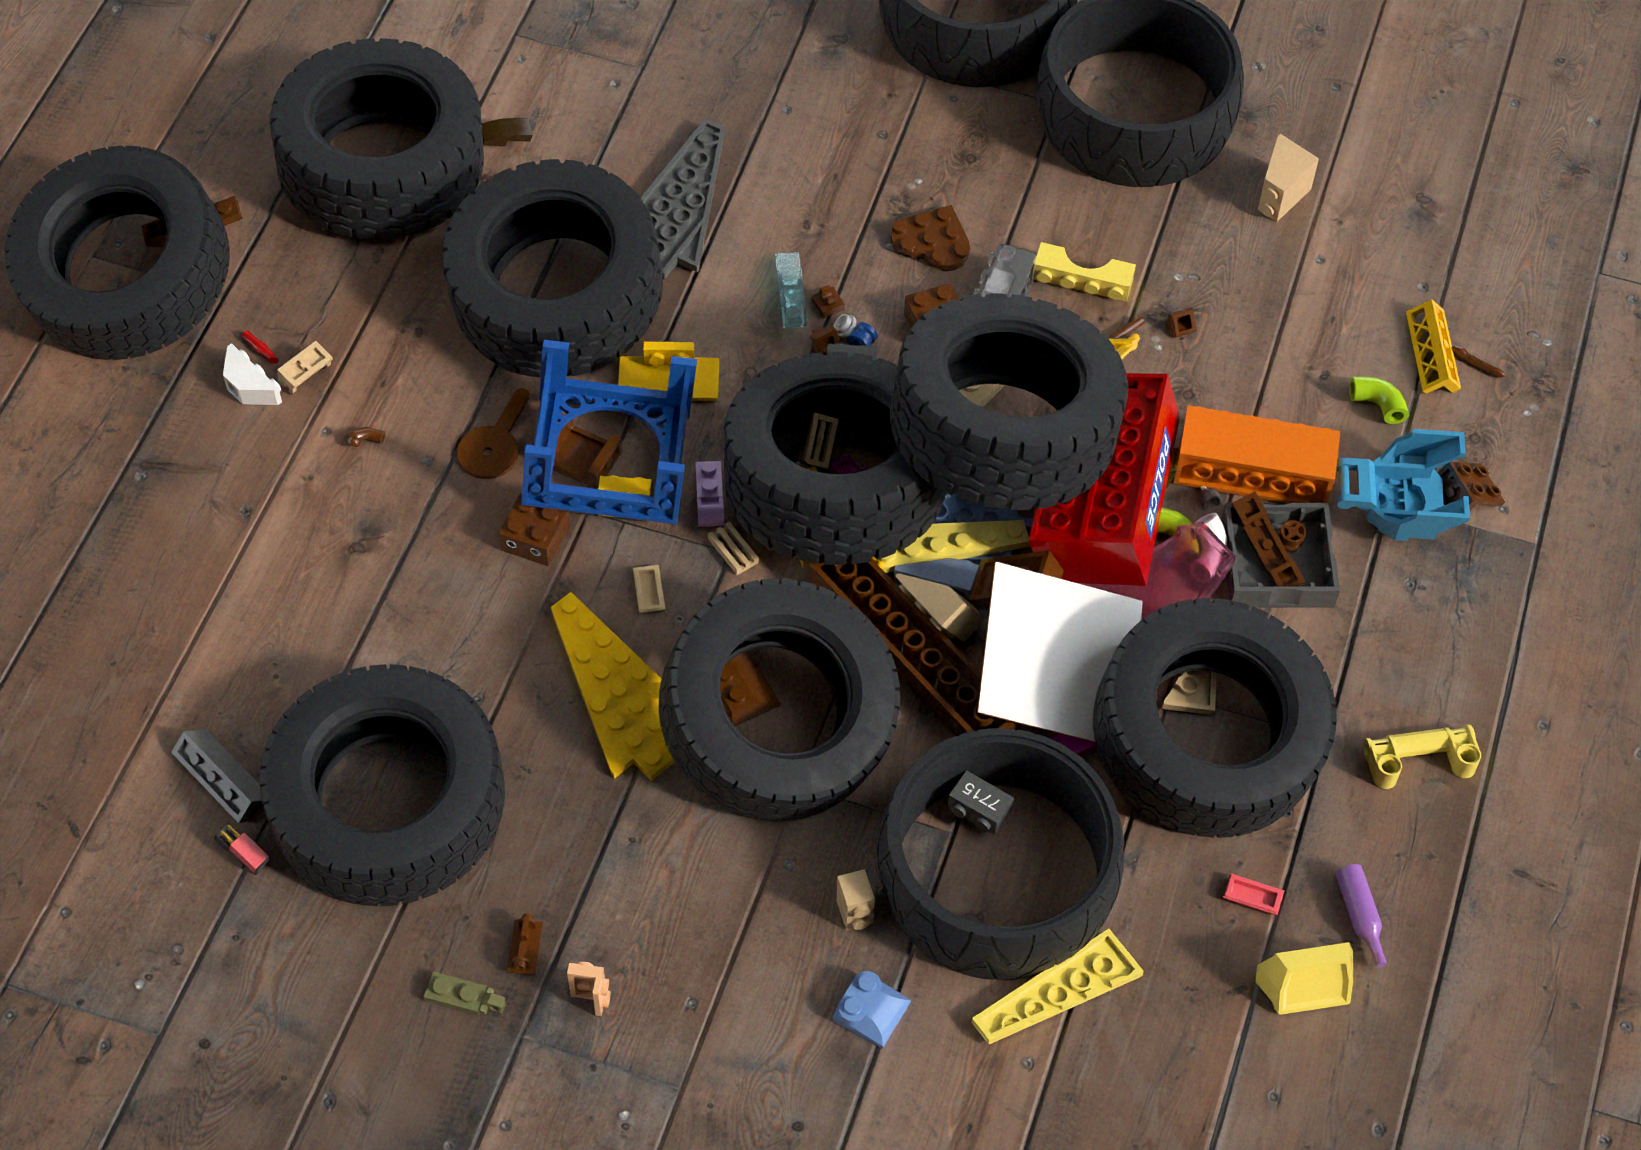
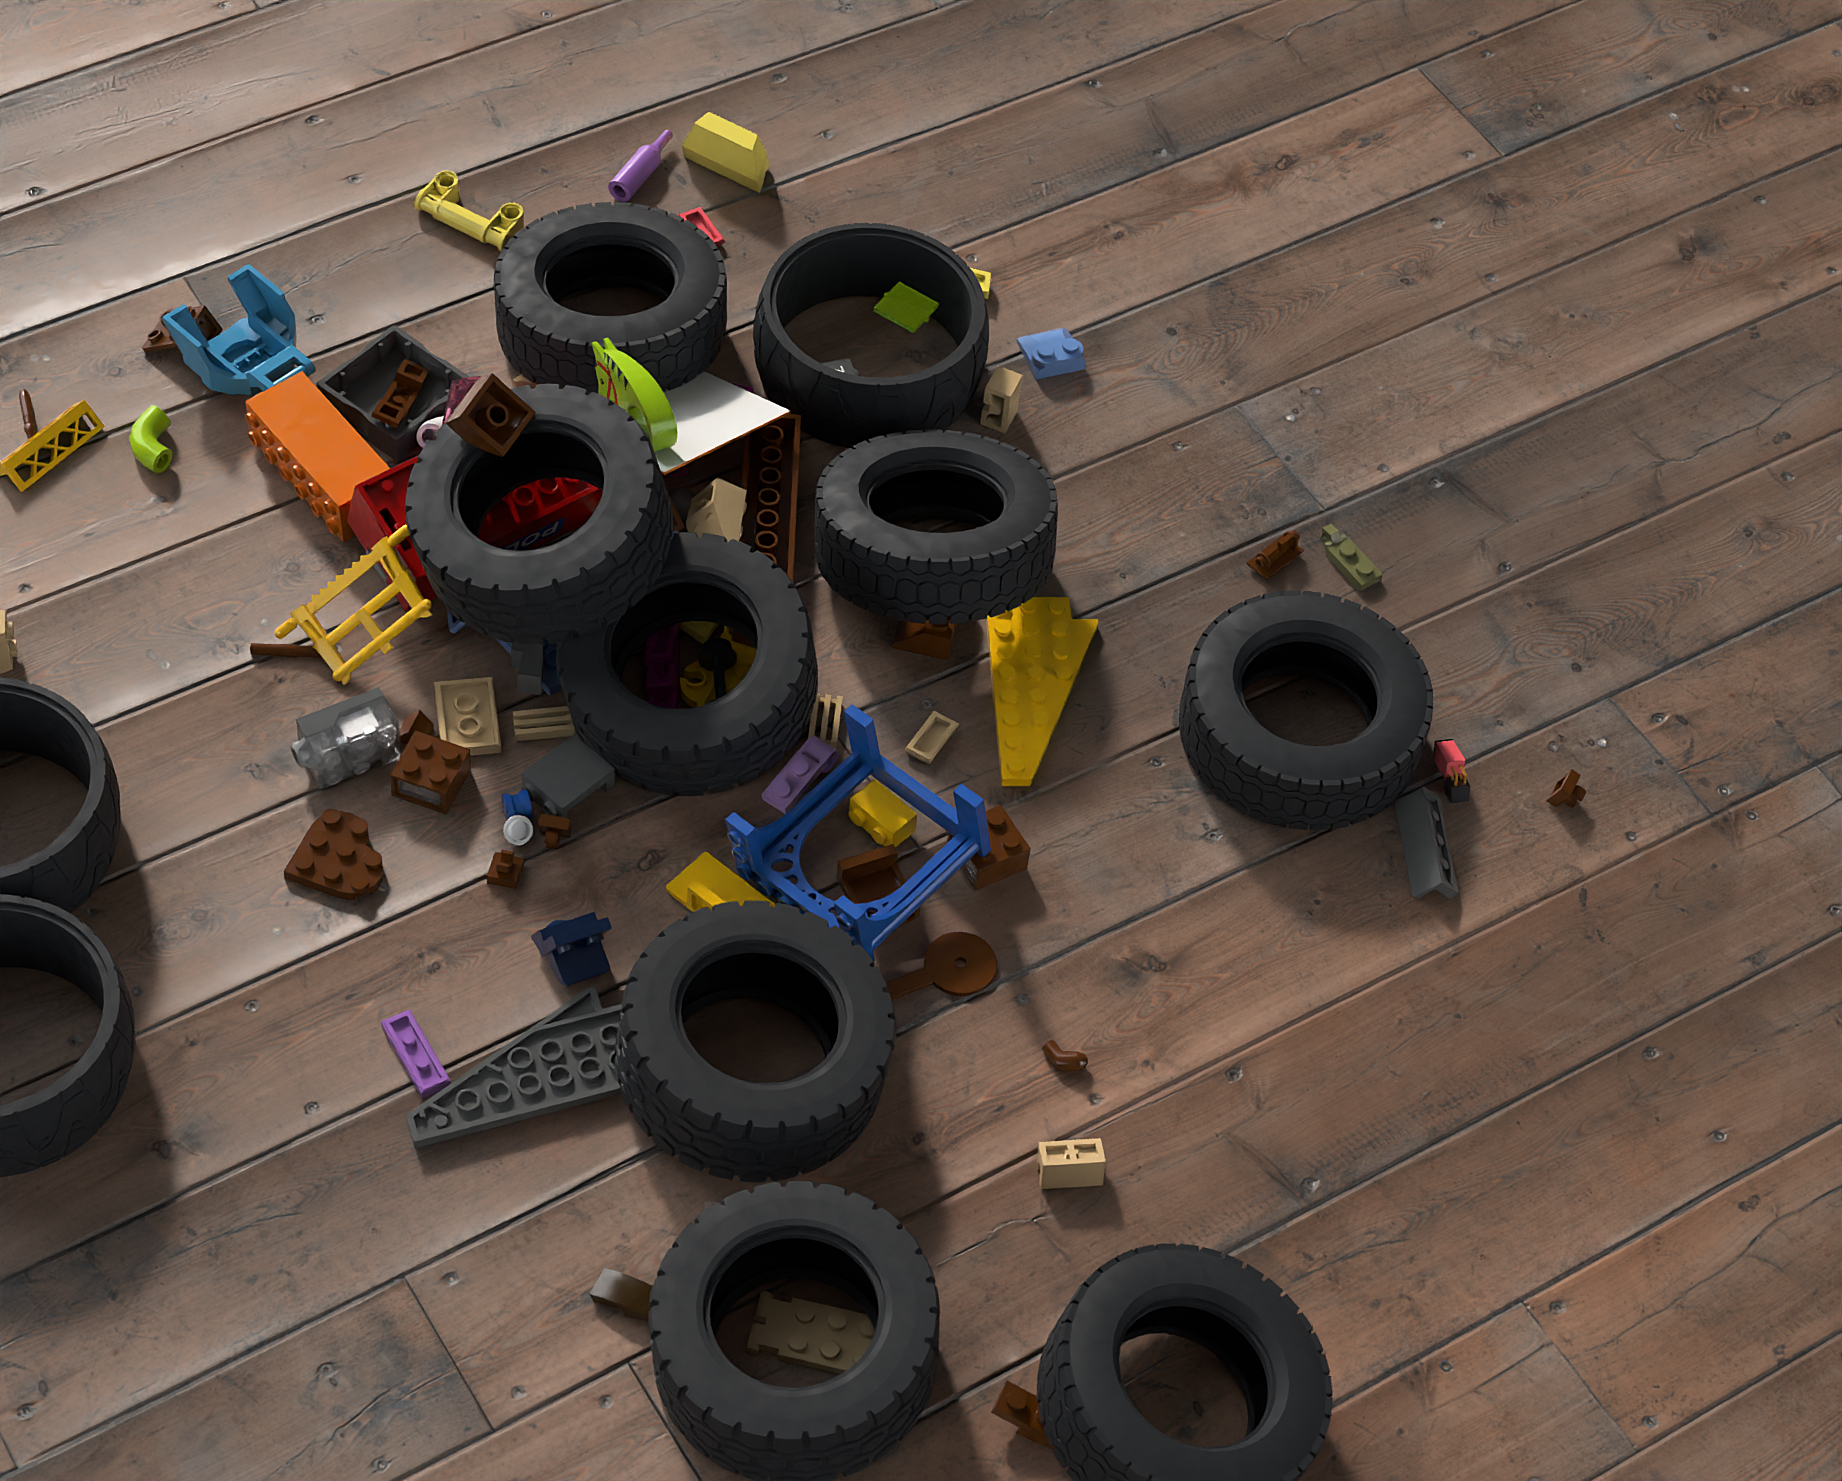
camera: 145 degrees left, 5 degrees down
(139, 899) = (1566, 790): none -> reddish brown tile
(248, 381) = (1137, 1194): white slope -> none
(259, 347) = (1093, 1234): red piece -> none
(589, 983) = (1254, 482): light nougat bracket -> none
(736, 276) = (574, 947): none -> dark blue piece
(760, 170) = (415, 1053): none -> medium lavender tile
(791, 290) = (530, 896): clear light blue slope -> none
(974, 843) = (906, 307): none -> clear neon green piece
(1069, 589) = (636, 392): none -> lime animal
(1091, 380) = (490, 416): none -> reddish brown slope
(1110, 280) = (234, 691): light yellow arch -> none
(1181, 322) = (221, 620): reddish brown slope -> none
(1292, 529) = (367, 395): reddish brown wheel -> none

